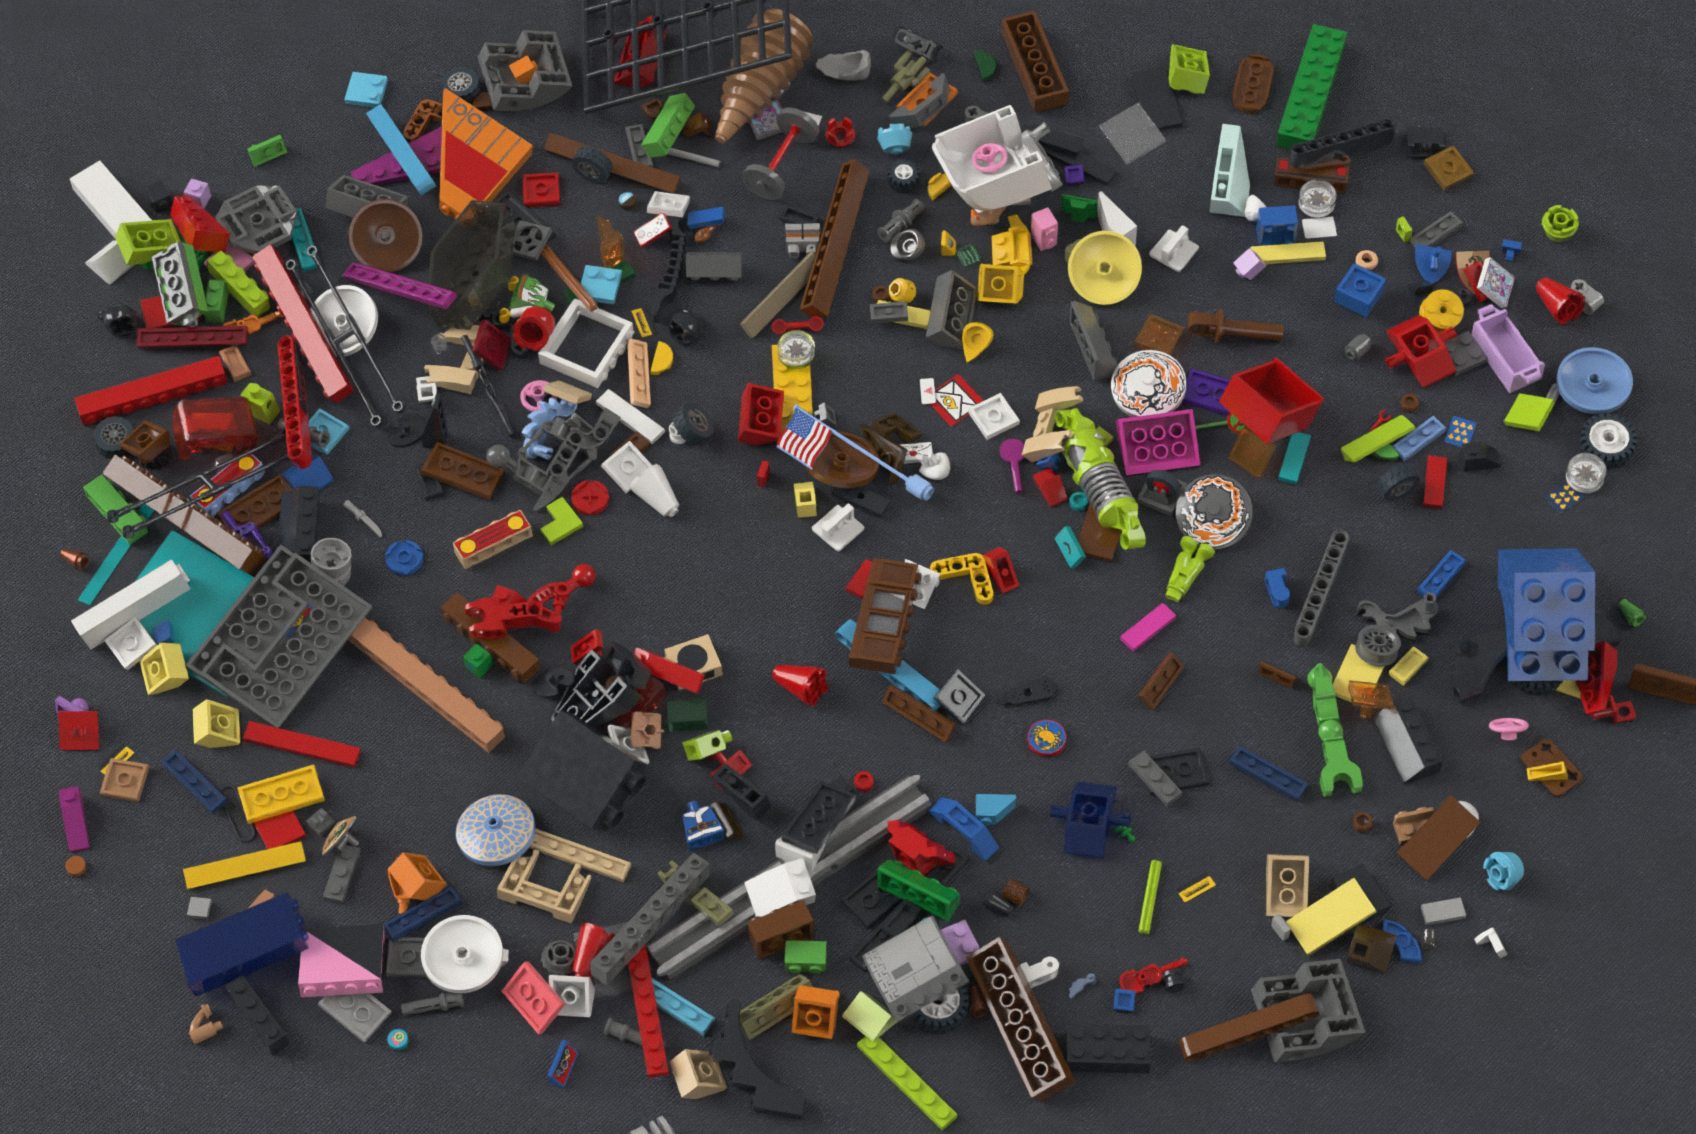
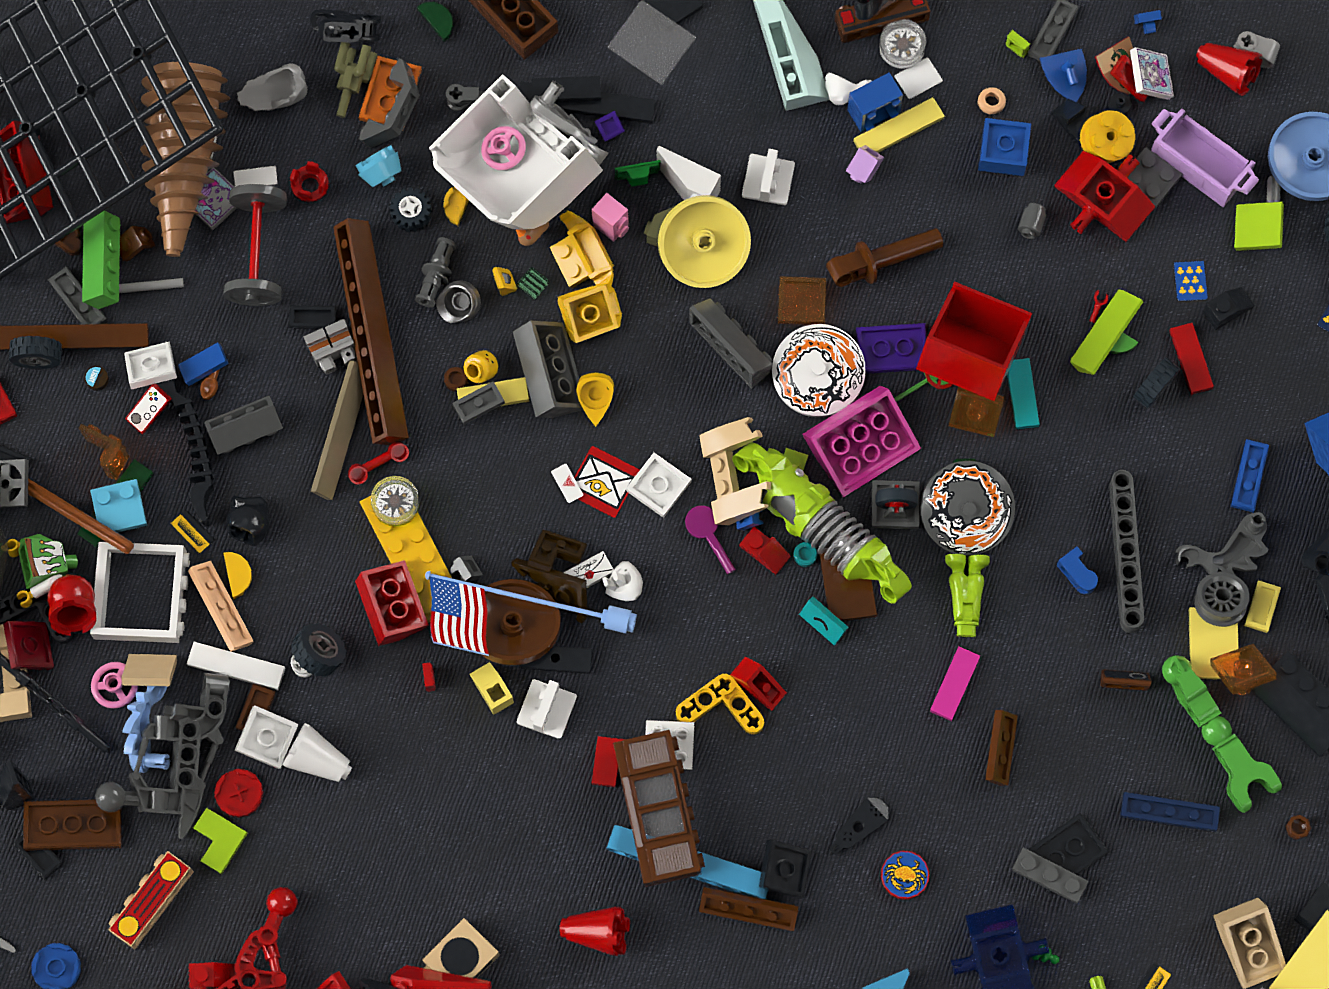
camera: 25 degrees left, 15 degrees up
(1409, 403) = (1119, 268): reddish brown tile -> none
(1419, 438) = (1150, 310): medium blue tile -> none

